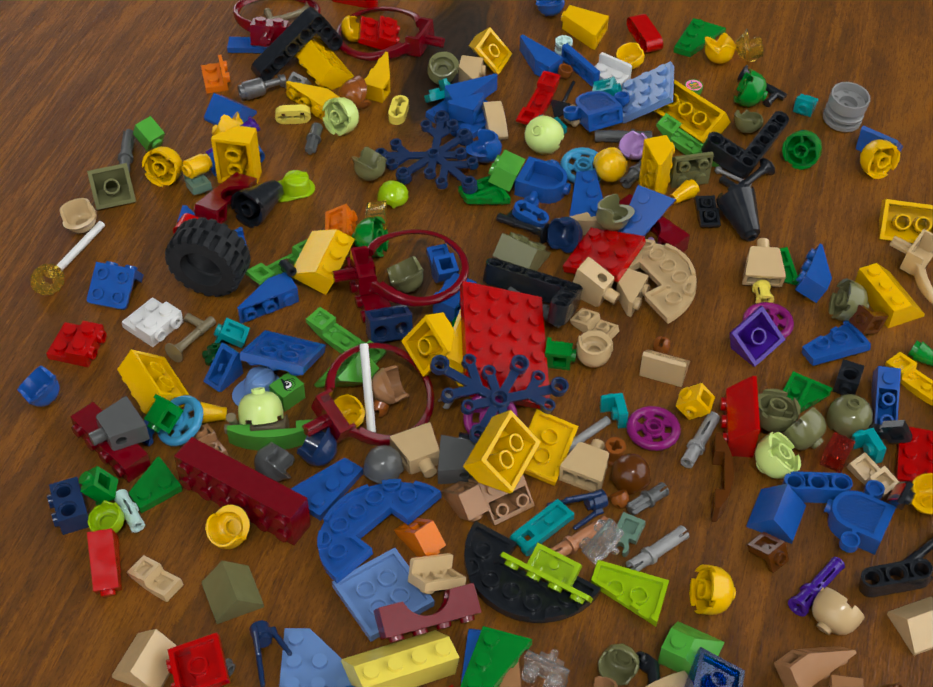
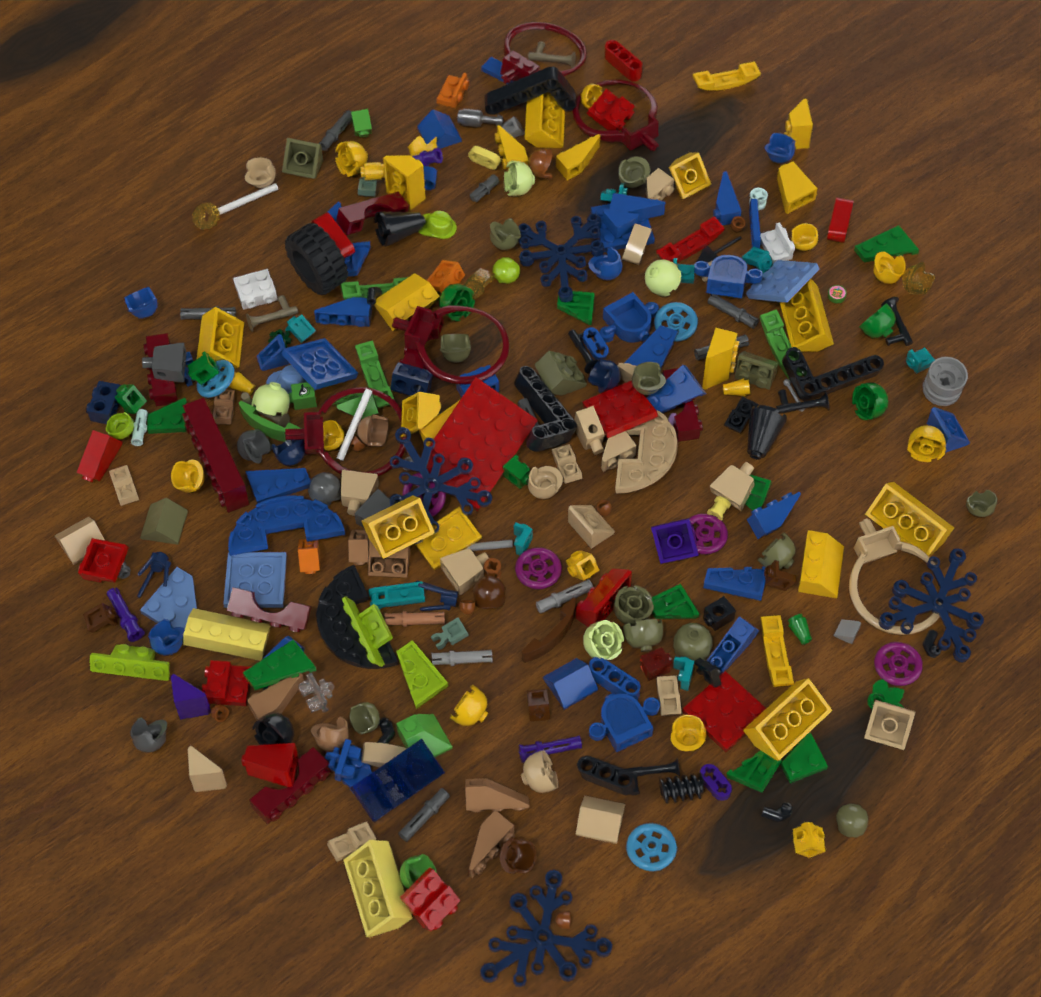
camera: 35 degrees right, 10 degrees up
(77, 343) = (193, 279): red plate -> none
(109, 370) = (196, 313): none -> dark grey pin
(112, 284) = (247, 243): blue bracket -> none
(400, 110) = (569, 192): light yellow beam -> none
(434, 573) = (294, 586): tan bracket -> none
(441, 262) = (490, 350): blue brick -> none
(505, 170) = (604, 294): bright green brick -> none
(603, 542) = (425, 629): clear hips -> none
(610, 164) = (692, 333): yellow helmet -> none
(632, 145) = (732, 322): lavender hair -> none
(647, 499) = (486, 617): dark grey axle -> none
(748, 121) = (849, 350): olive hair -> none
(901, 495) = (662, 721): black slope -> none

